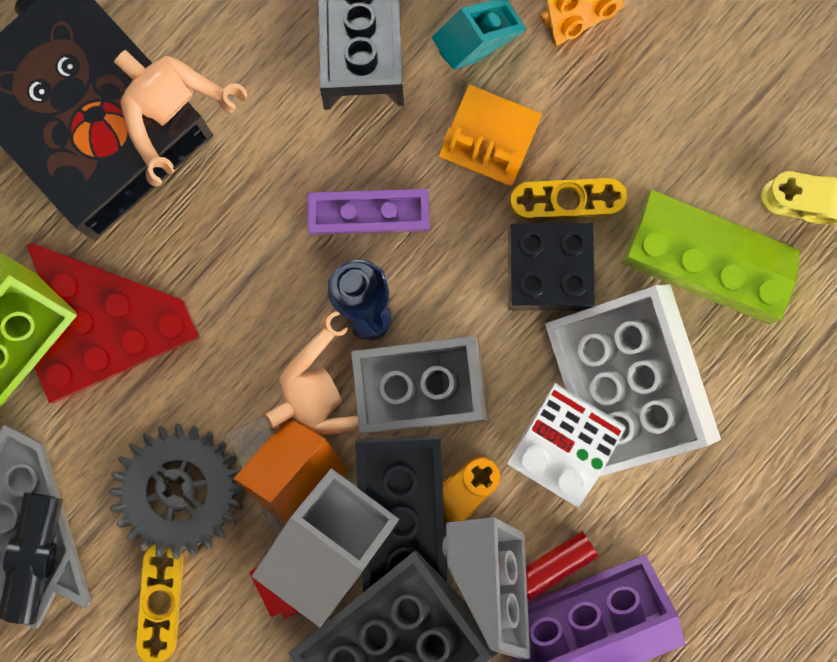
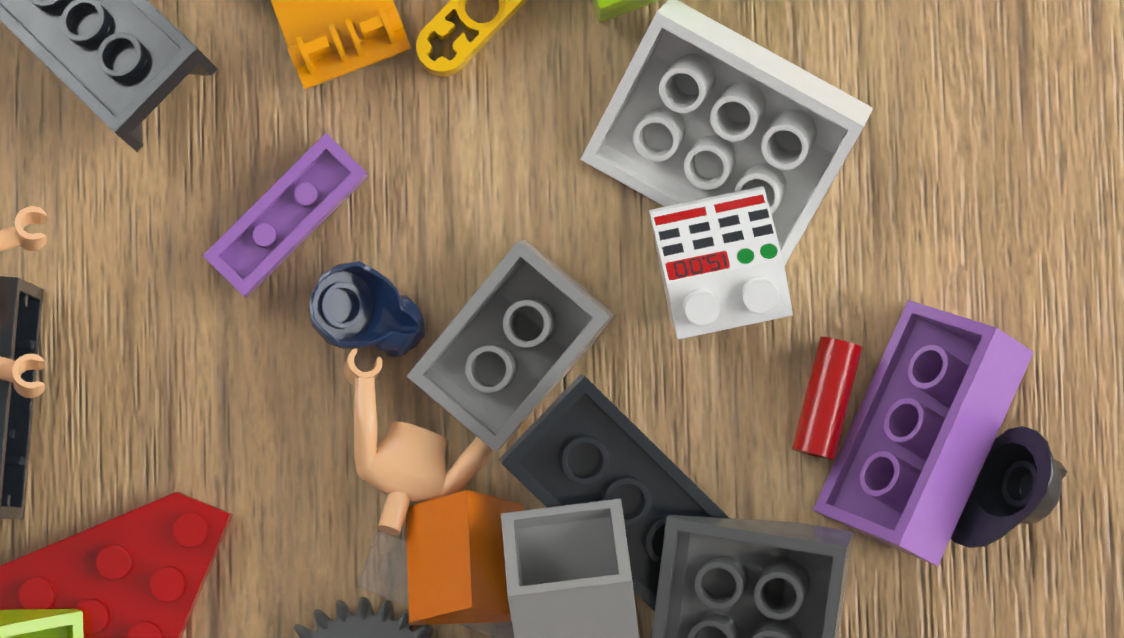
camera: 40 degrees left, 0 degrees up
(461, 495) = (664, 417): light orange piece -> none
(491, 574) = (765, 464): light grey slope -> none
(550, 266) = (530, 94): black brick -> none

